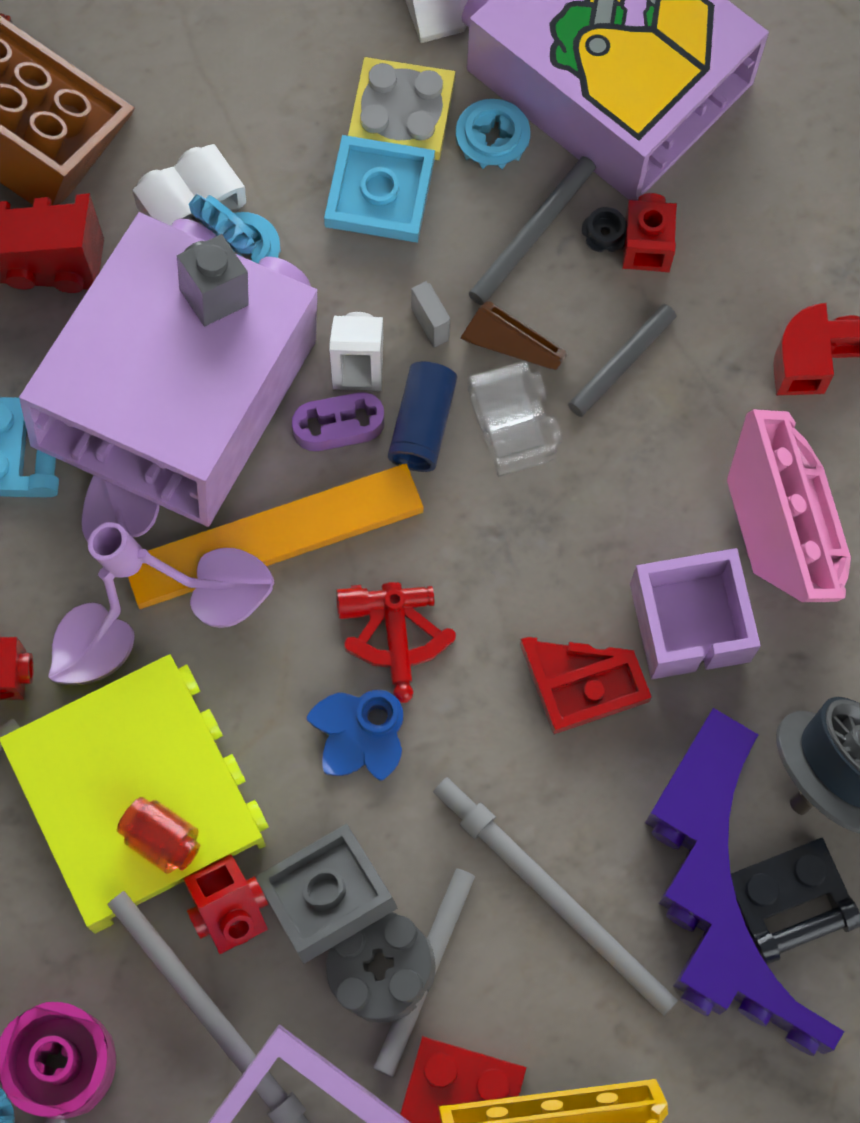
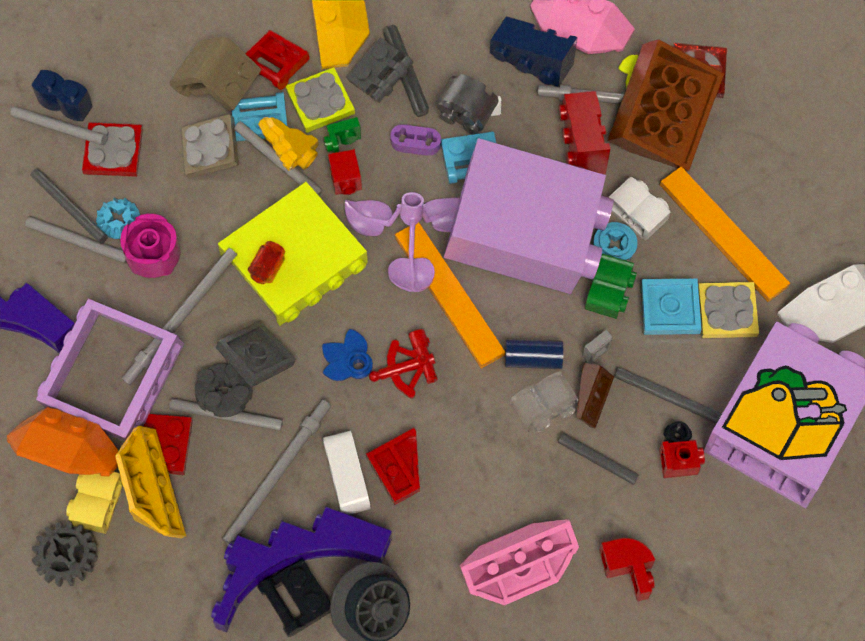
camera: 80 degrees right, 5 degrees down
(212, 279) = (566, 214): dark grey brick -> none
(223, 221) = (617, 223): medium azure gear -> none
(225, 904) = (241, 306): red brick -> none
(262, 82) = (724, 234): none -> light orange tile
(338, 271) = (610, 285): none -> green brick
(338, 421) = (517, 315): medium lavender beam -> none
(357, 352) = (564, 310): white slope -> none
(479, 119) = (734, 355): medium azure gear -> none
(582, 771) = (346, 473): none -> white beam
(694, 613) = (445, 514): lavender piece -> none

